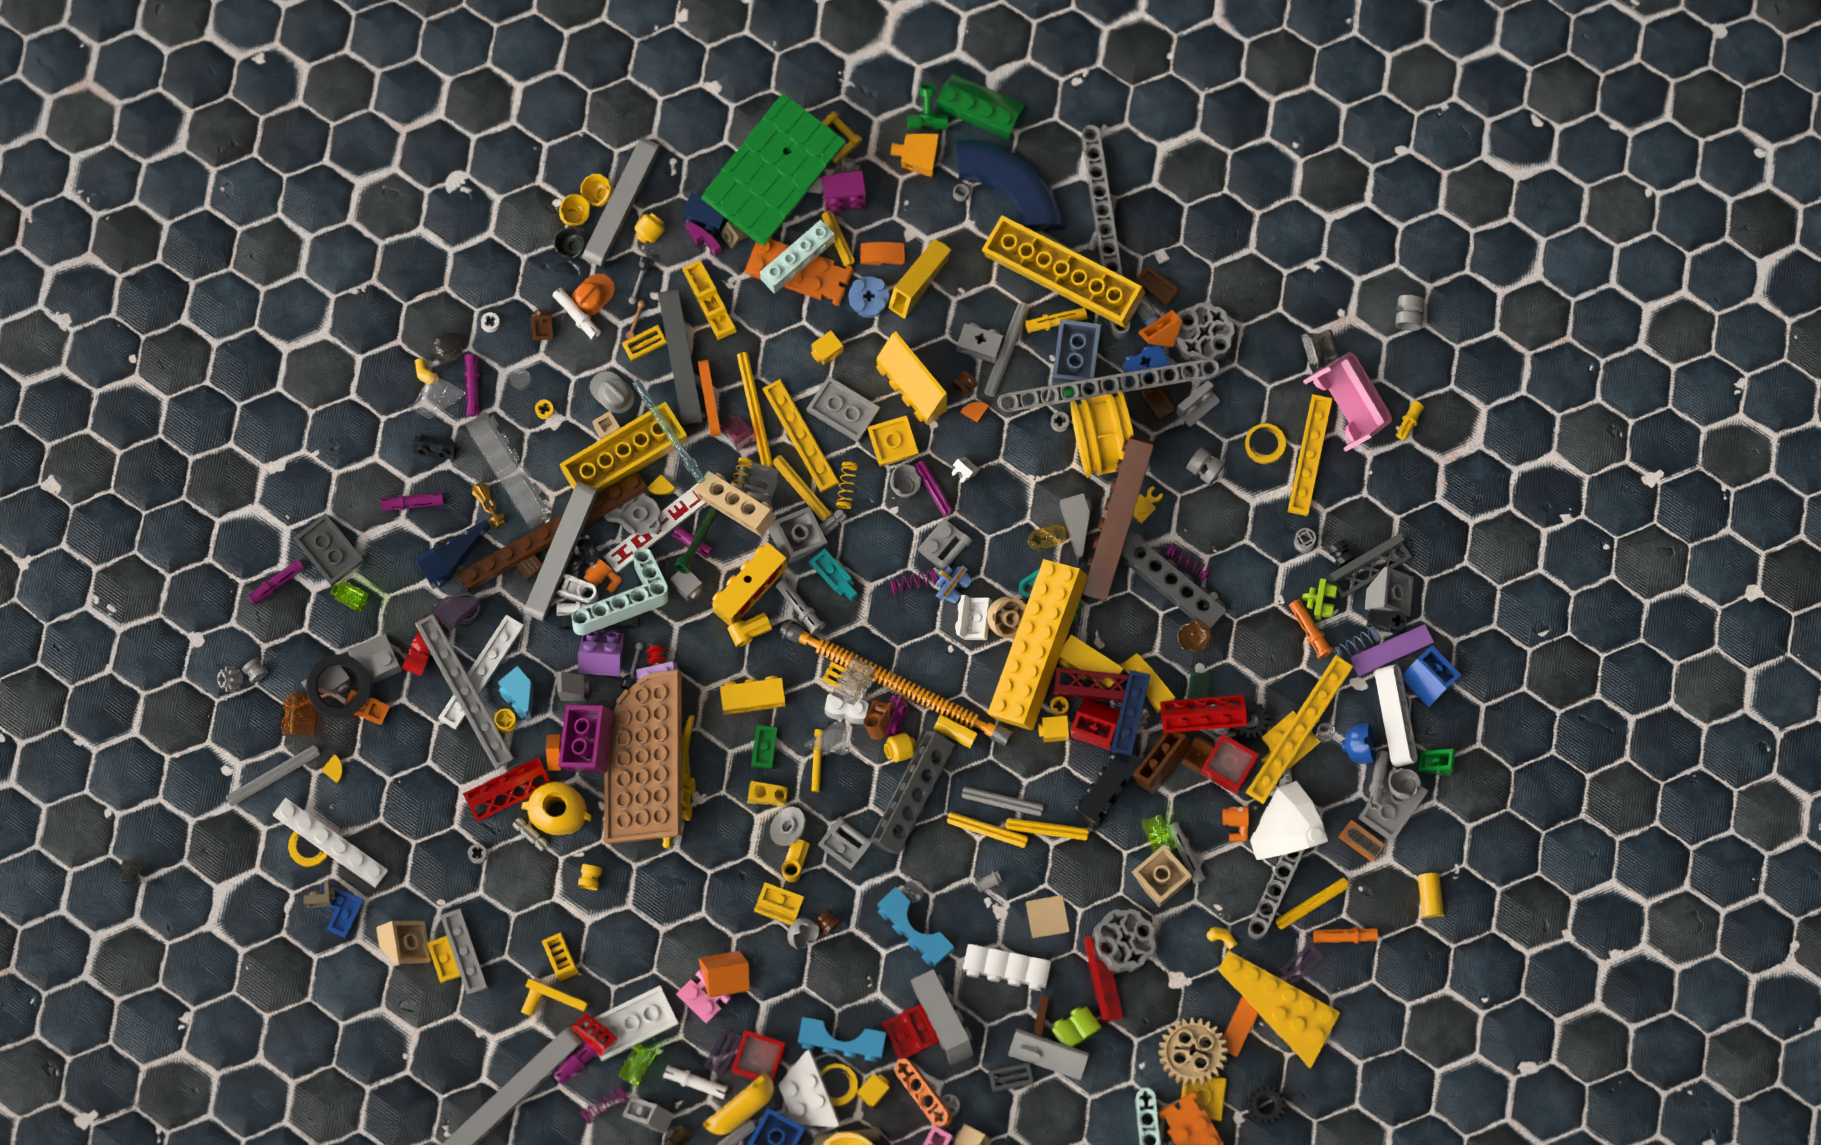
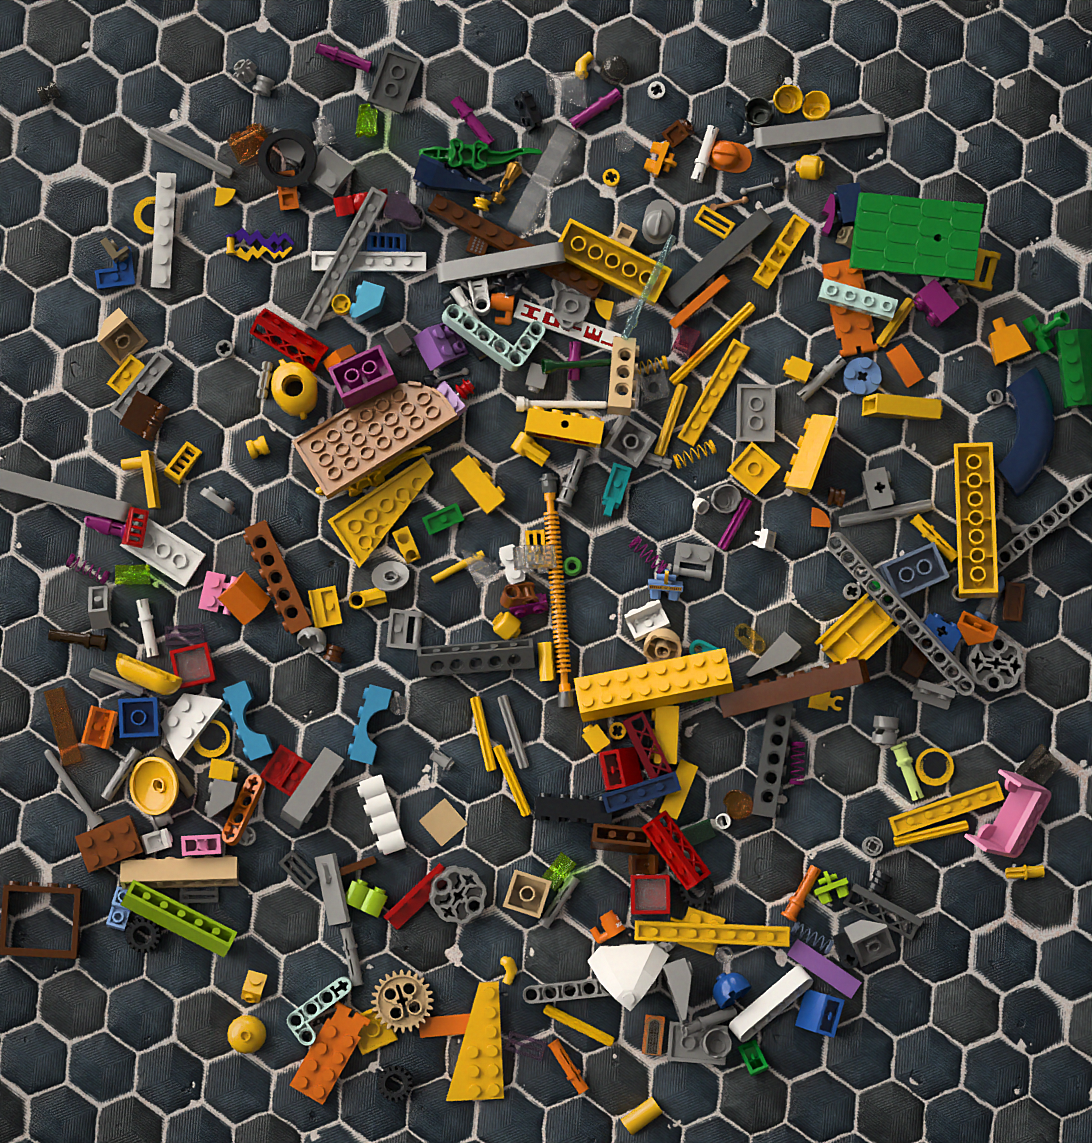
camera: 55 degrees right, 10 degrees up
(334, 641) = (324, 131): none -> clear brick
(380, 773) = (266, 244): none -> piece
(445, 517) = (474, 156): none -> green animal
(468, 641) = (379, 235): none -> blue slope
(494, 538) = (481, 204): none -> yellow bush
(494, 964) = (144, 416): none -> reddish brown hinge
(560, 363) = (655, 166): none -> light orange hips
(609, 946) = (211, 494): none -> light grey plate
(671, 919) = (252, 535): none -> dark orange brick
(703, 611) = (523, 404): none -> white piece
(722, 815) = (372, 516): none -> yellow wing
(846, 325) = (827, 373): none -> light grey pin
(881, 650) = (576, 561): none -> bright green plate
(897, 508) = (700, 506): none -> white hinge
(898, 1101) = (222, 797): none -> light grey slope
(1122, 1074) = (352, 956): none -> light grey pin
(1201, 664) = (719, 821): none -> white hinge
(1244, 466) = (904, 761): none -> yellowish green pin
(1324, 482) = (931, 833): none -> yellow axle
(1327, 785) = (678, 980): none -> light grey slope

